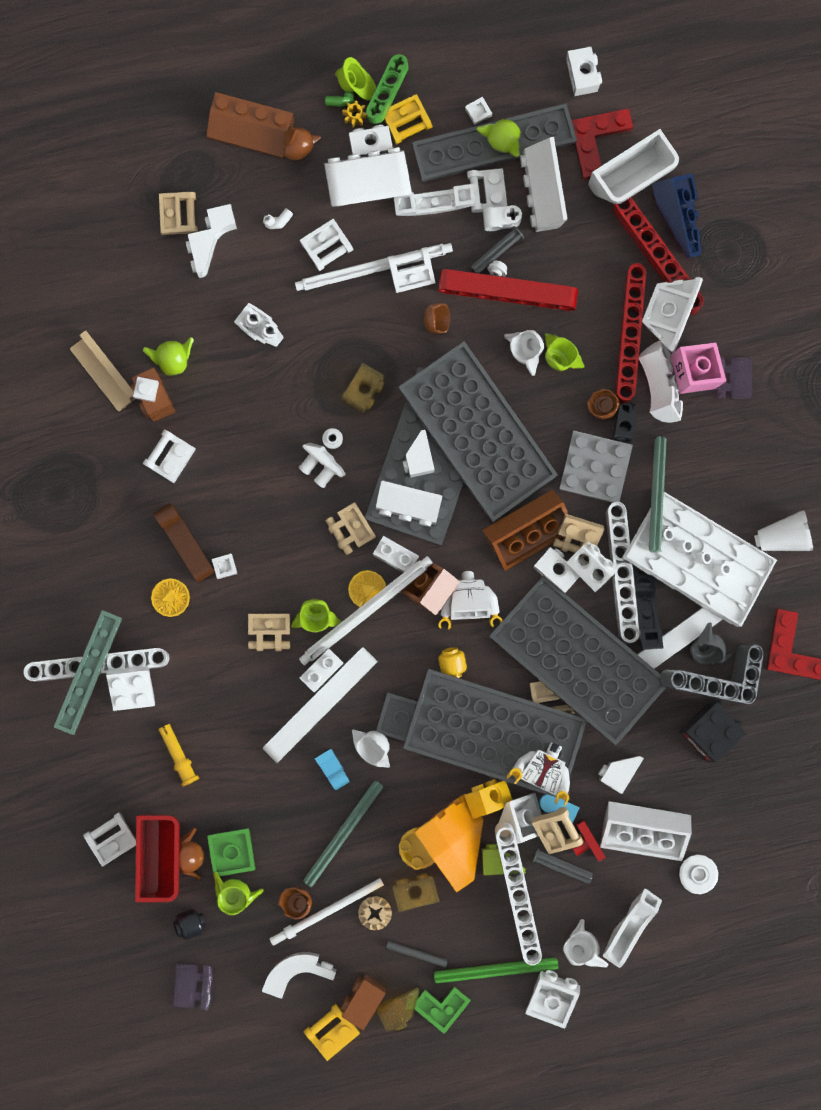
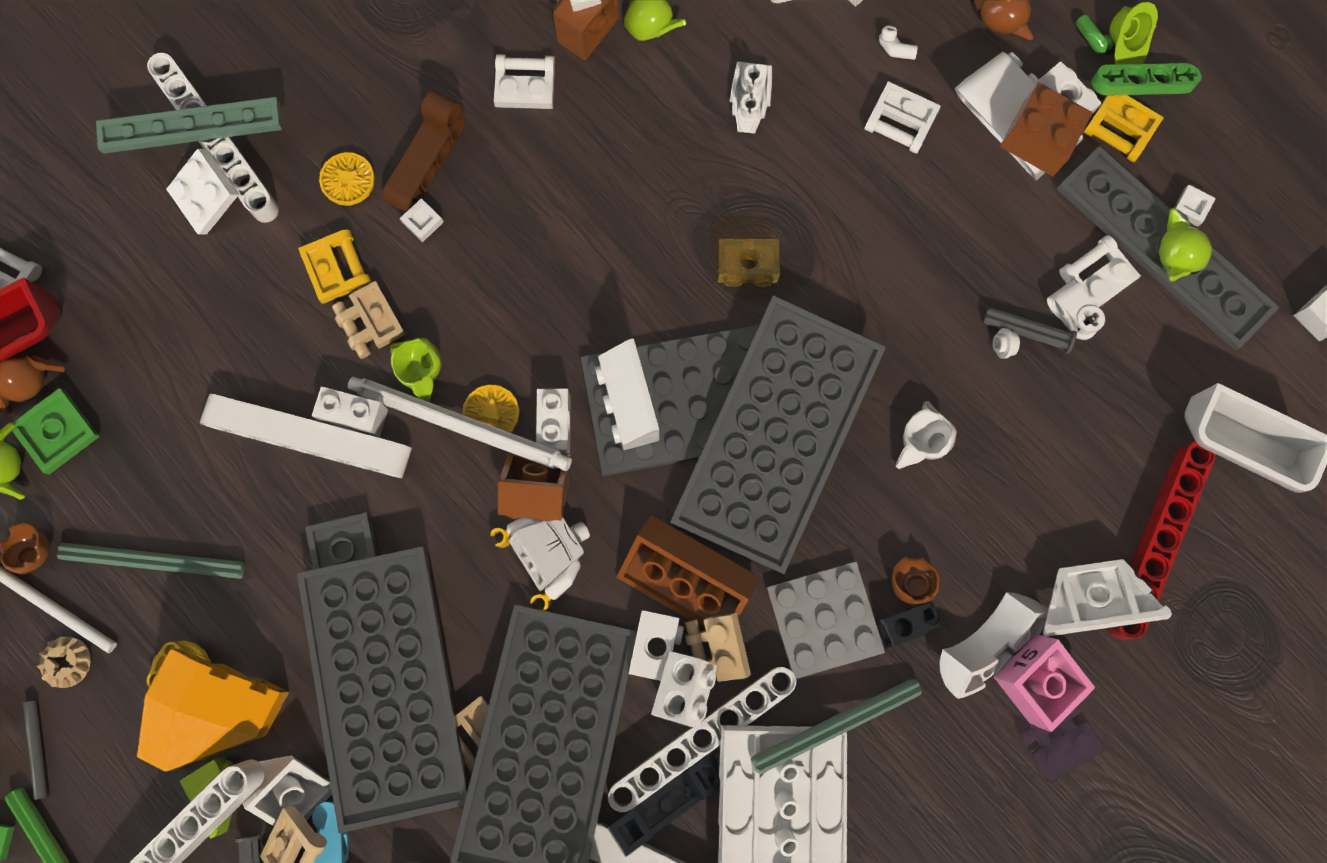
camera: 65 degrees right, 5 degrees down
(182, 765) = (139, 307): yellow pin -> none
(222, 640) = (325, 270): none -> yellow plate
(319, 454) = (629, 258): white connector -> none
(332, 445) = (661, 269): white plate -> none
(332, 769) = (228, 499): medium azure leg -> none
(354, 120) = (1088, 58): yellow gear -> none
(356, 525) = (564, 353): tan plate -> none
(364, 269) = (912, 190): white piece -> none
(372, 747) = (281, 533): white piece -> none
(392, 173) = (1046, 129): none -> dark orange brick
(406, 901) = (97, 697): clear yellow brick -> none
(412, 276) = (929, 242): white plate -> none
(419, 457) = (699, 377): white slope -> none
(435, 202) = (1040, 216): white slope -> none
(437, 318) = (894, 301): dark orange hair -> none
(452, 662) = (452, 575): yellow head -> none
(488, 799) = (273, 718): yellow brick -> none
(508, 290) = (989, 373): red beam -> none
(544, 185) = (1155, 333): white slope -> none
(544, 771) = (357, 785): white torso -> none
(562, 353) = (948, 487): lime piece -> none
(595, 126) = (1274, 364): red plate -> none
(633, 324) = (1047, 560): red beam -> none
(676, 202) = (1248, 523): dark blue wedge -> none

